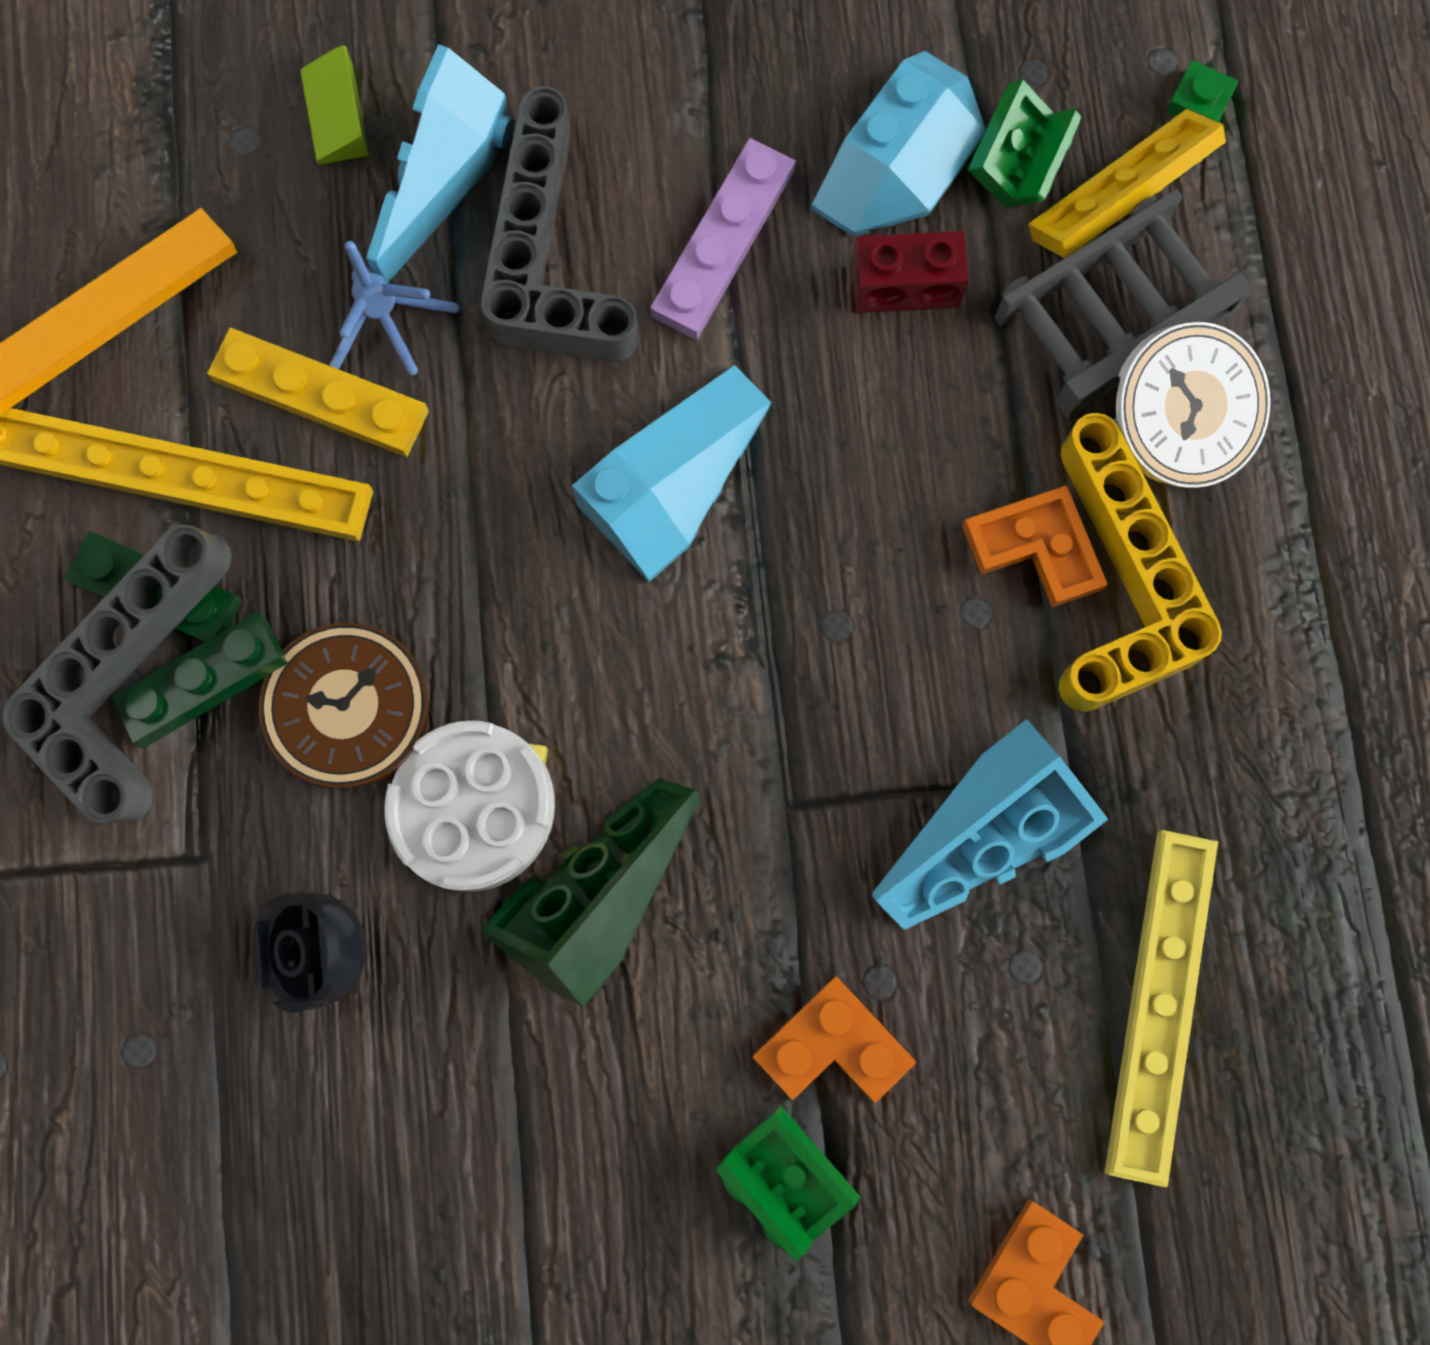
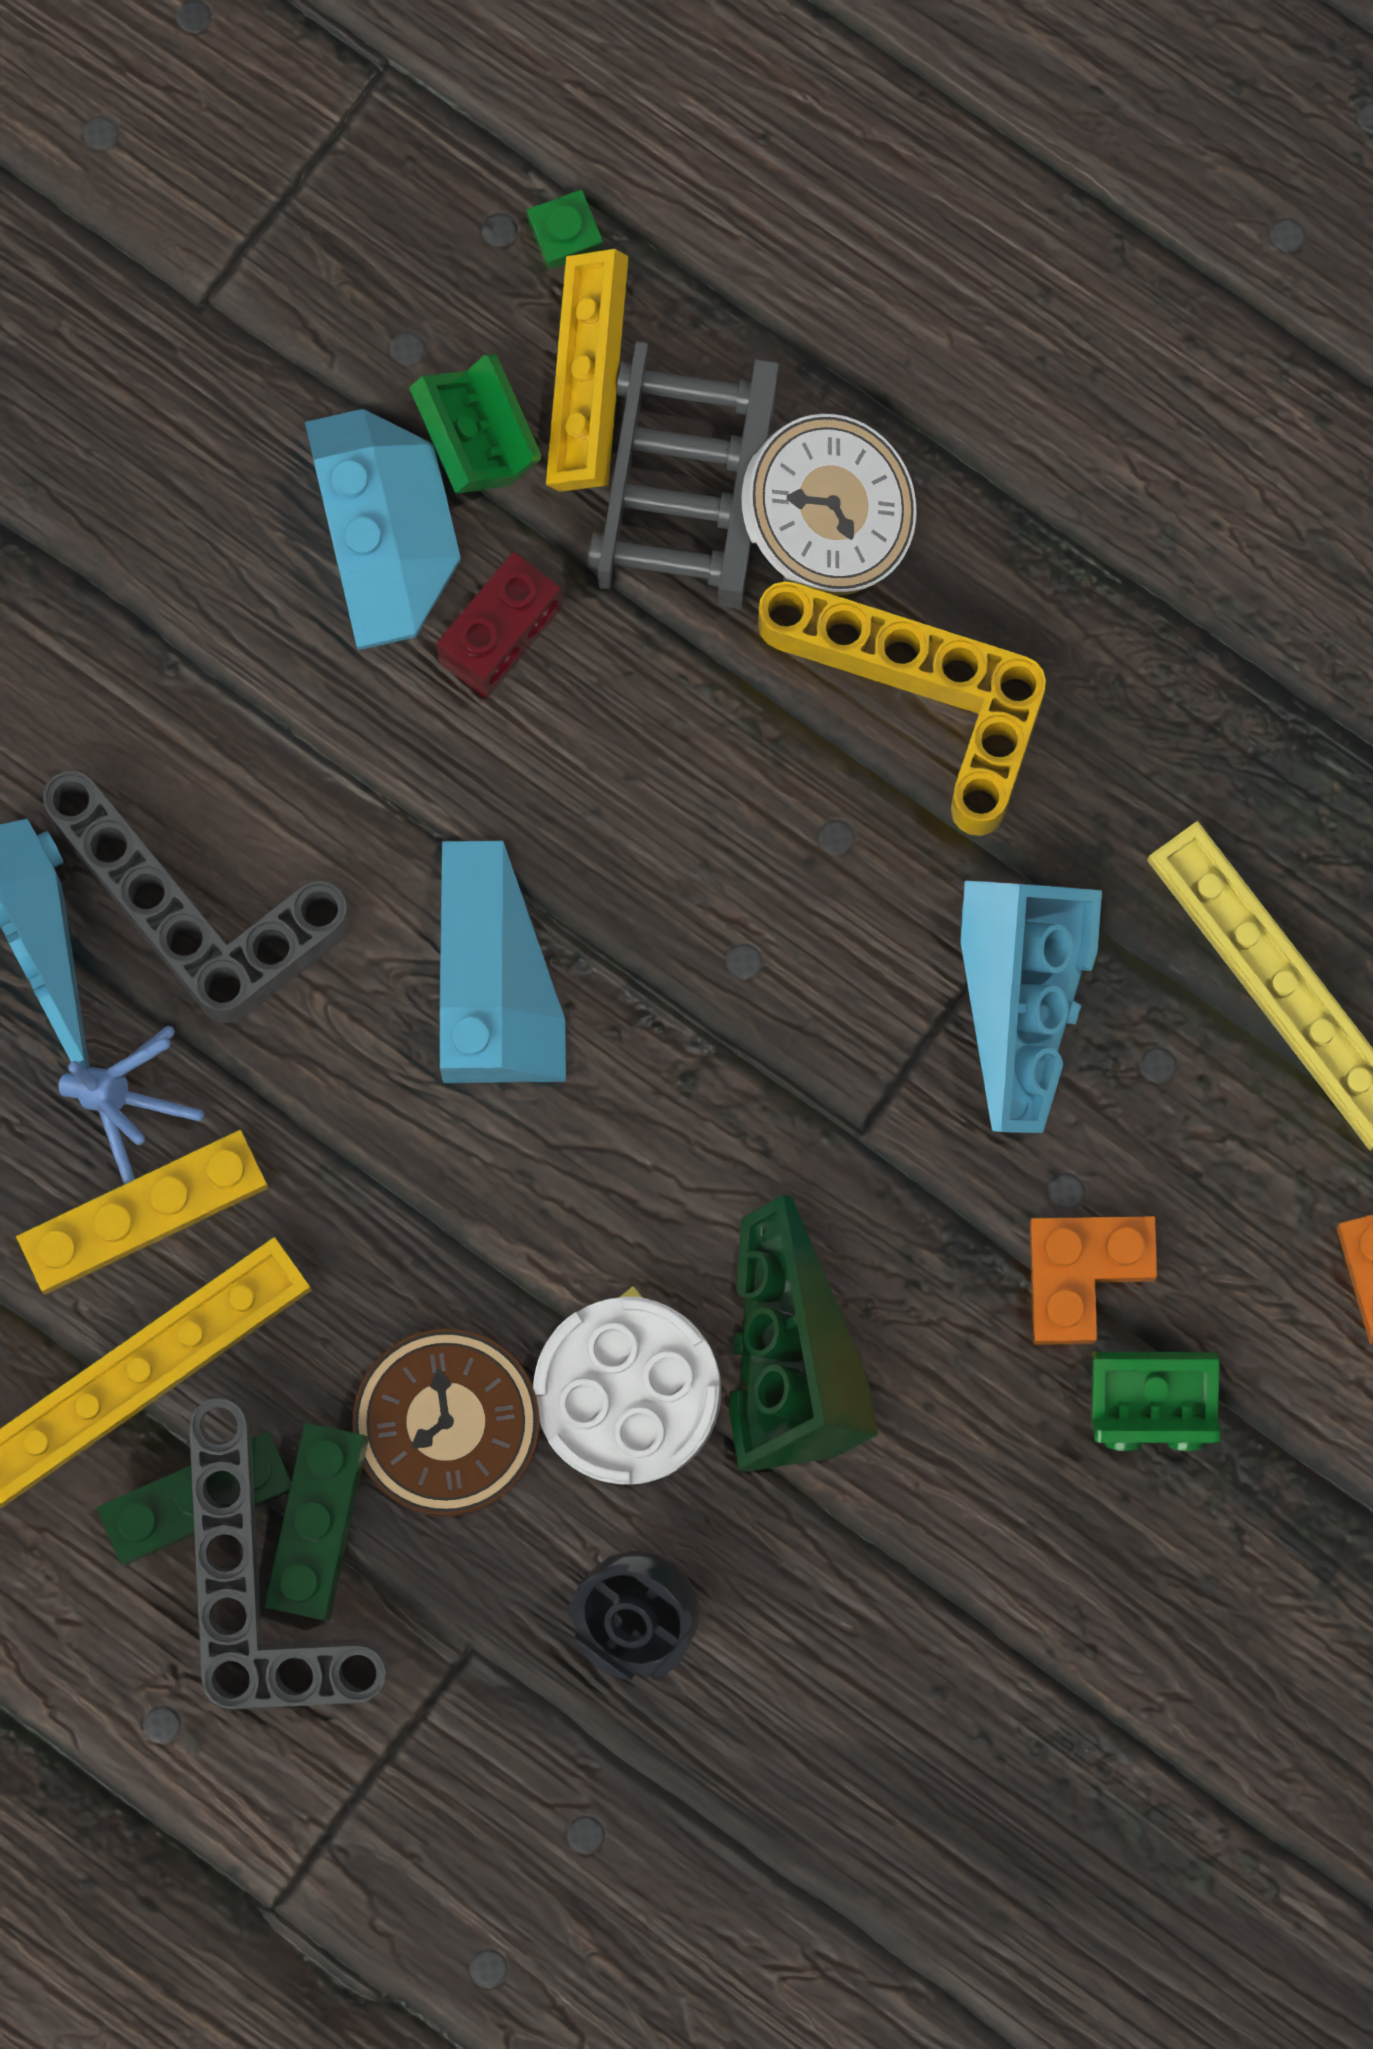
camera: 45 degrees left, 0 degrees up
(722, 239) = (318, 749): lavender plate -> none
(1046, 531) = (825, 719): orange plate -> none

